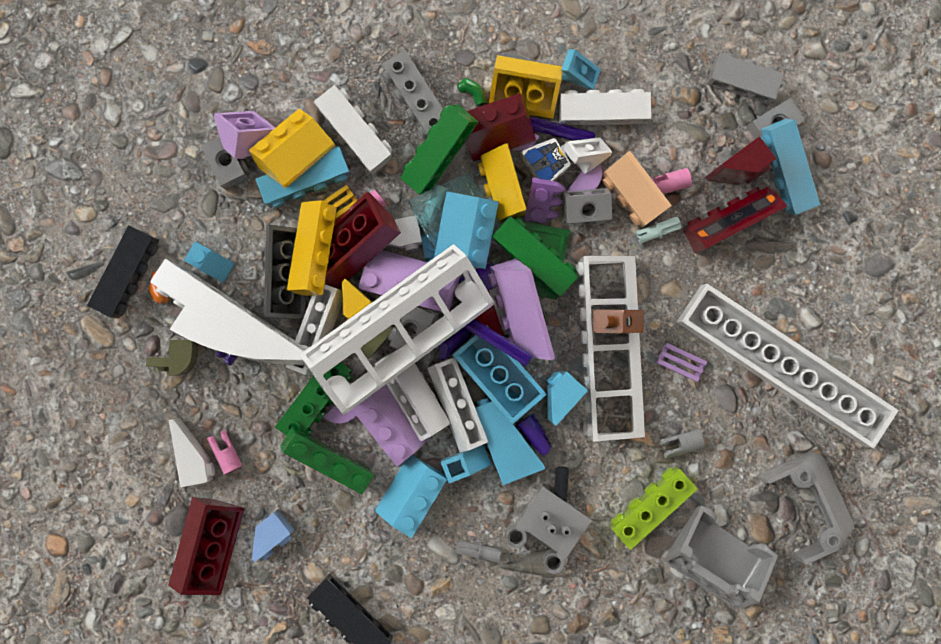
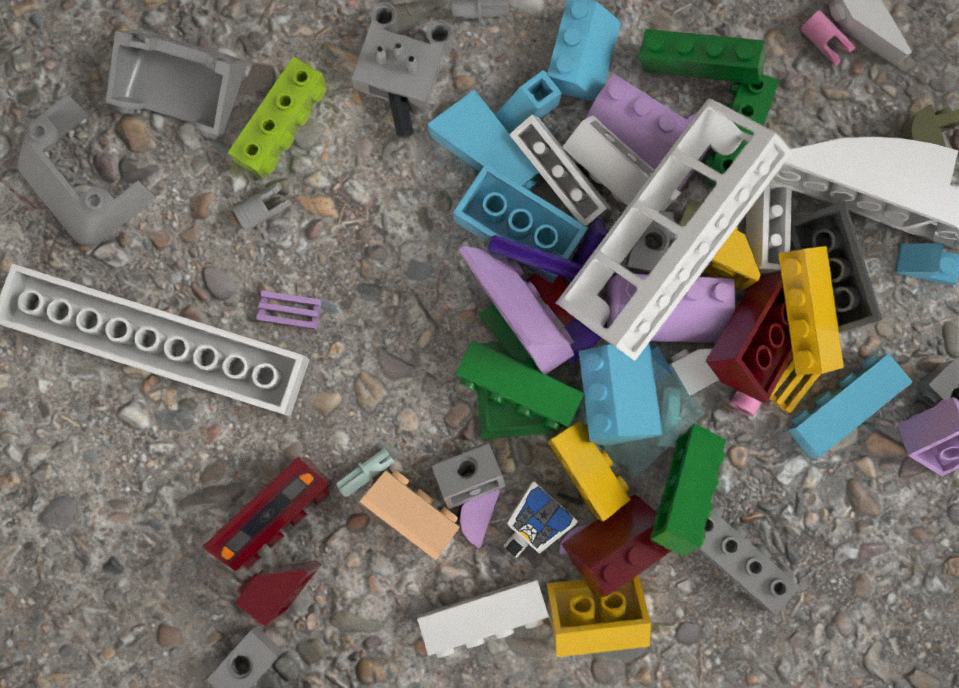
camera: 160 degrees right, 5 degrees down
(291, 148) = (881, 434): yellow slope -> none
(353, 129) = (807, 487): white brick -> none
(473, 88) = (665, 592): green arm -> none
(535, 434) = (450, 165): dark purple hinge -> none
(542, 199) = (529, 465): medium lavender plate -> none
(560, 130) = (530, 569): dark purple axle -> none
(562, 395) = (431, 217): medium azure slope -> none
(579, 70) = (531, 659): medium azure slope -> none
(587, 153) = (489, 546): white slope -> none
(615, 321) = (398, 328): dark orange torso -> none
(633, 347) = (358, 305): white window -> none
(673, 181) = (366, 541): bright pink hinge -> none
(790, 166) = (211, 608): medium azure brick -> none

